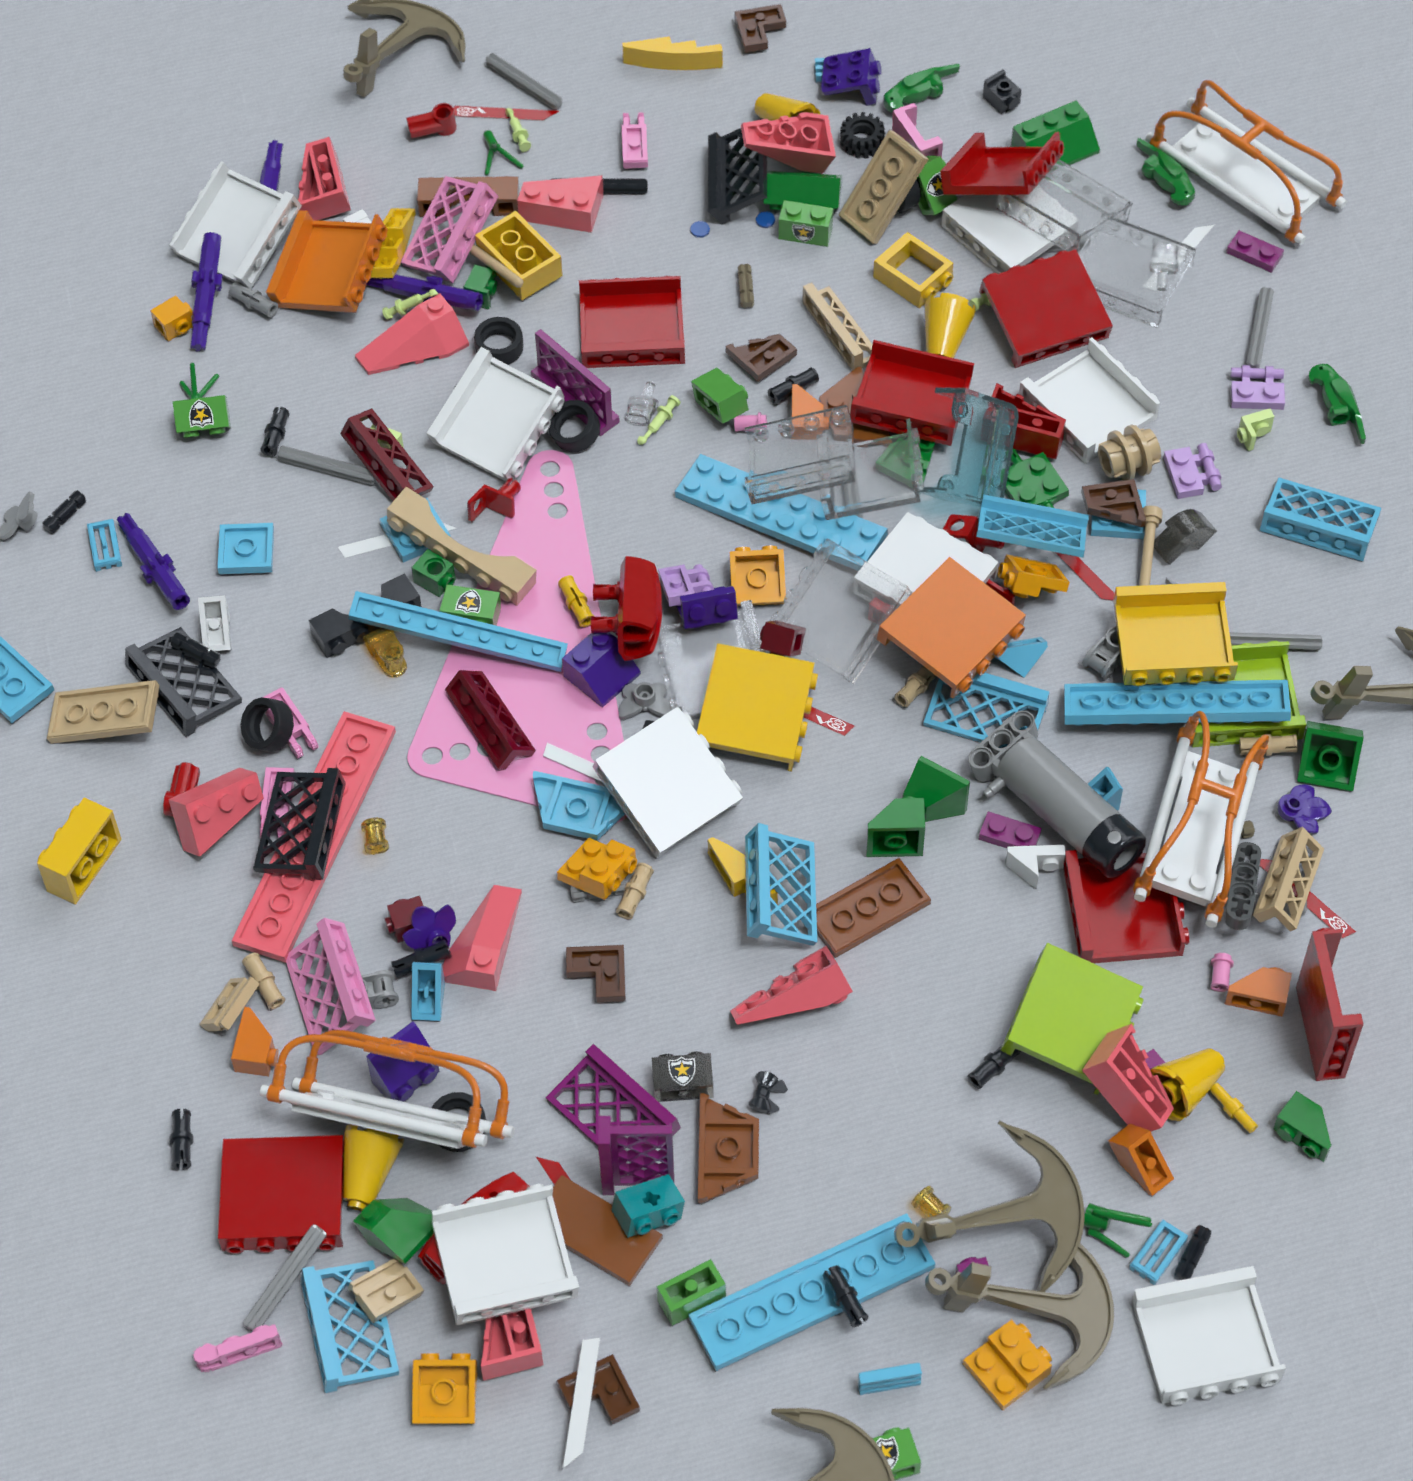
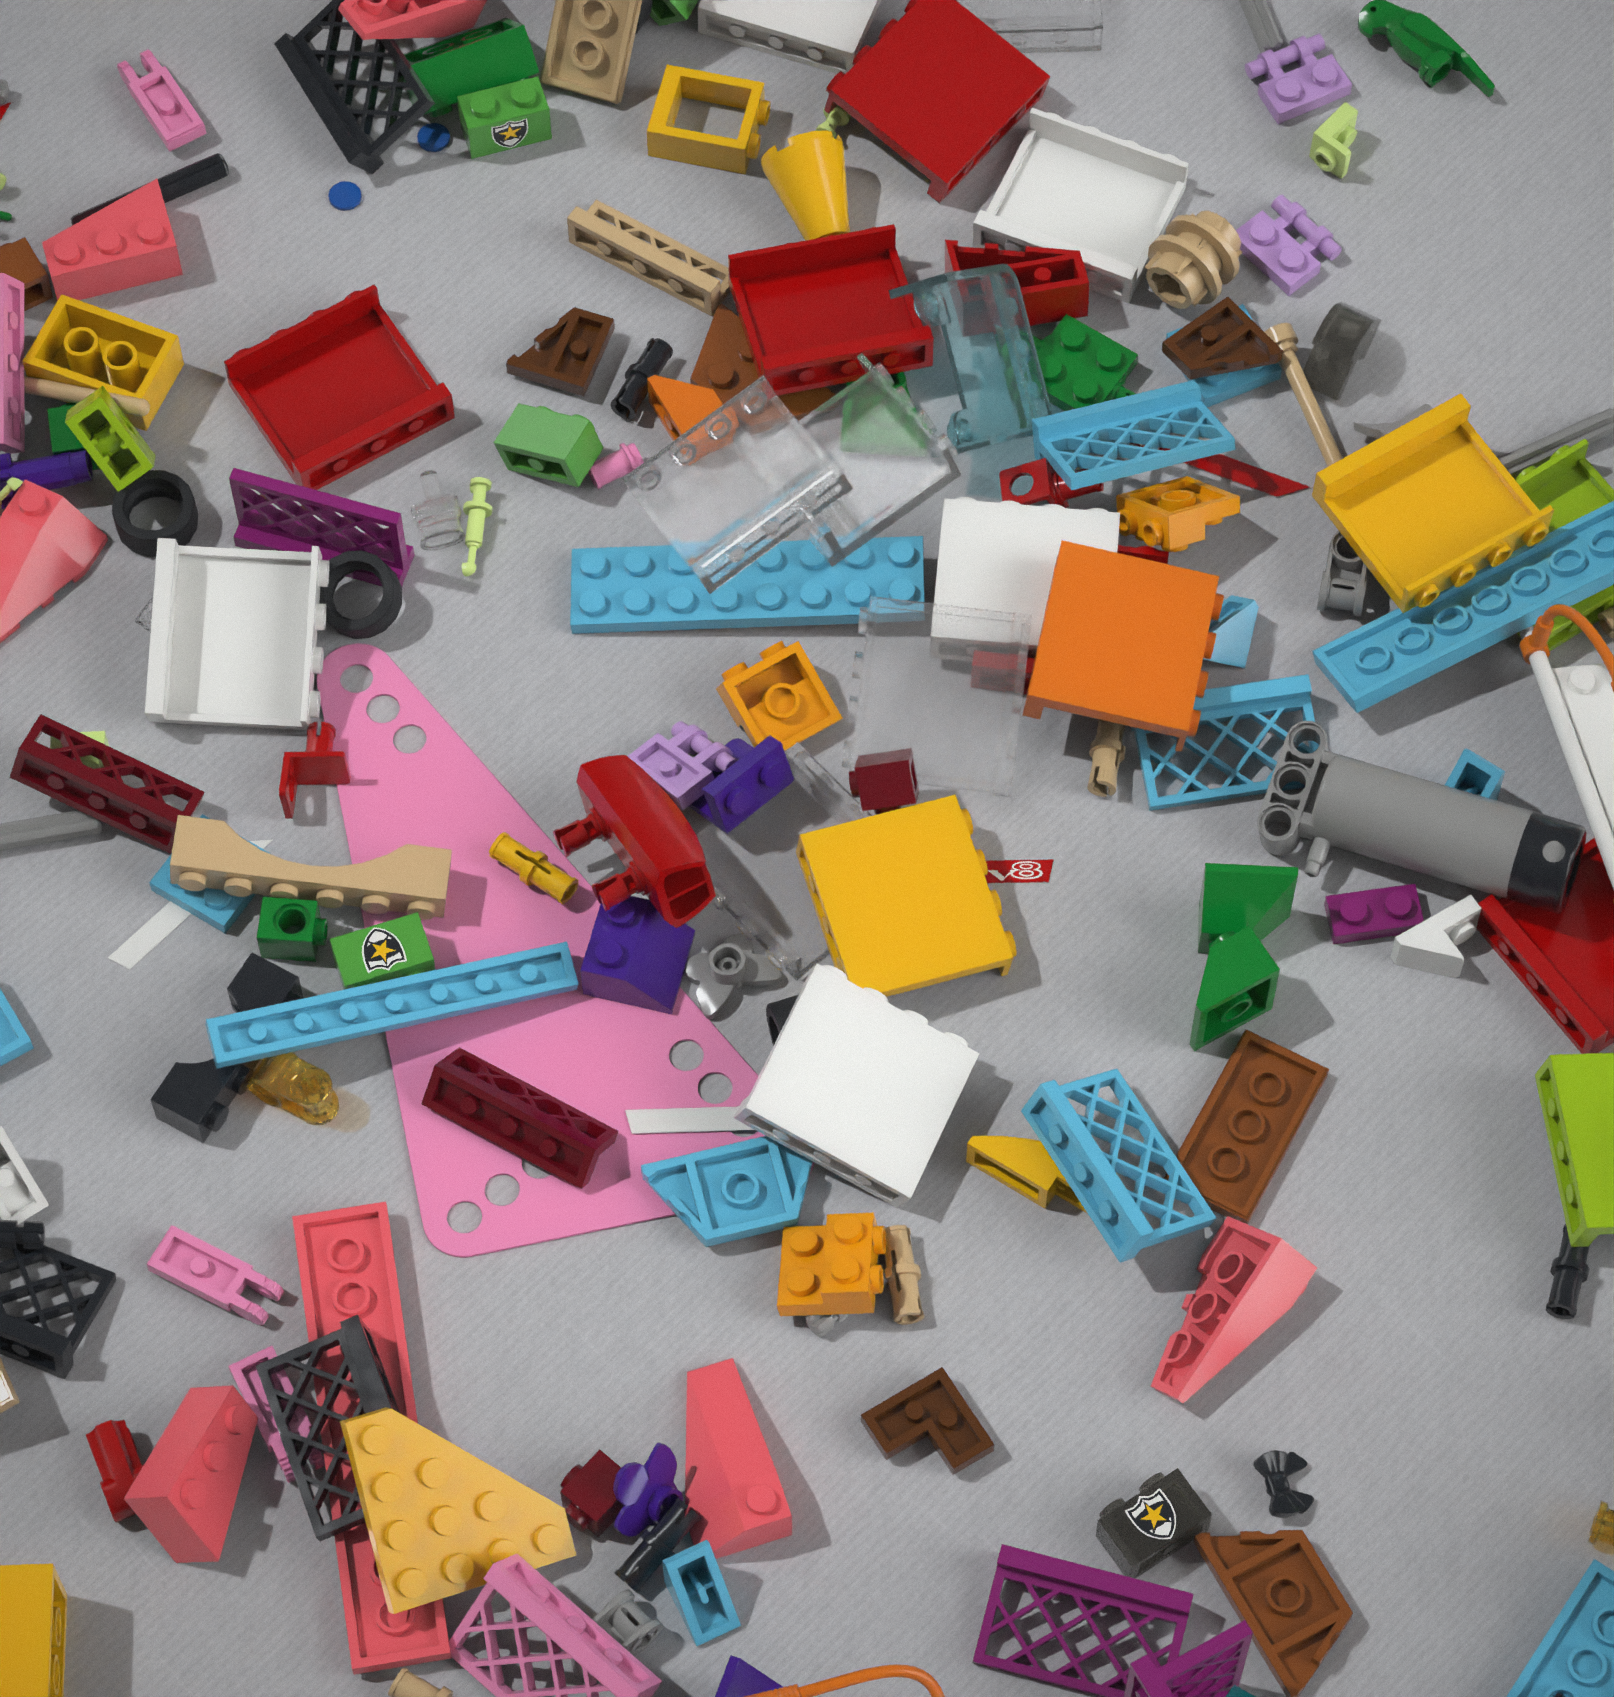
camera: 30 degrees left, 5 degrees up
(282, 727) = (166, 1318): black tyre -> none
(319, 883) = (441, 1512): none -> yellow plate
(375, 835) = (463, 1388): clear yellow bush -> none
(492, 290) = (110, 438): none -> lime brick
(745, 286) = (472, 254): dark tan axle -> none
(1317, 530) = (1509, 256): medium azure fence -> none

